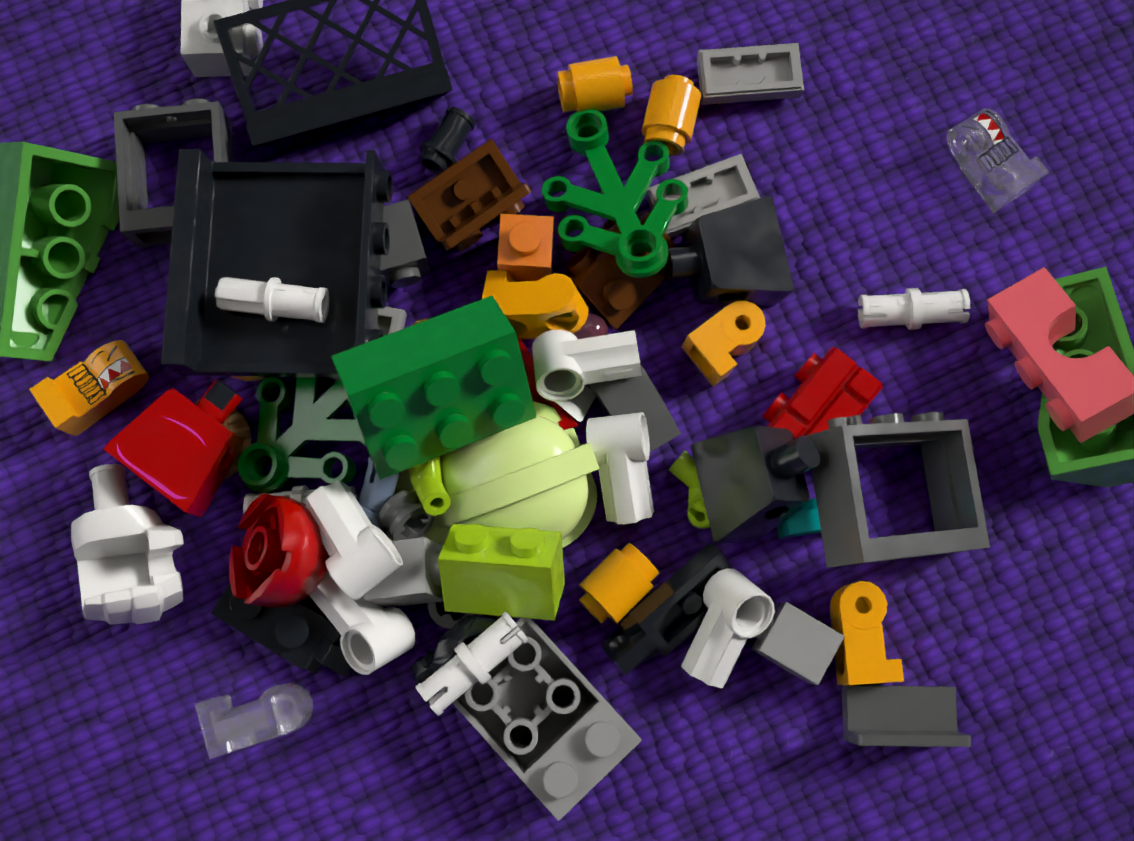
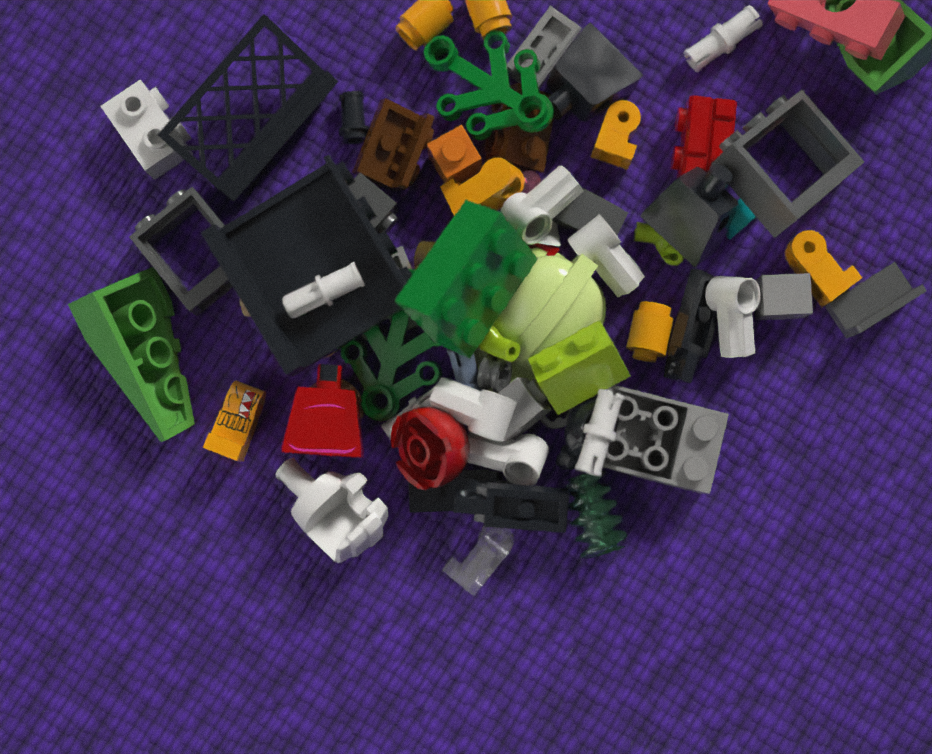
camera: 30 degrees left, 5 degrees up
(325, 685) = (515, 506): none -> black hinge
(412, 757) = (594, 515): none -> clear green piece

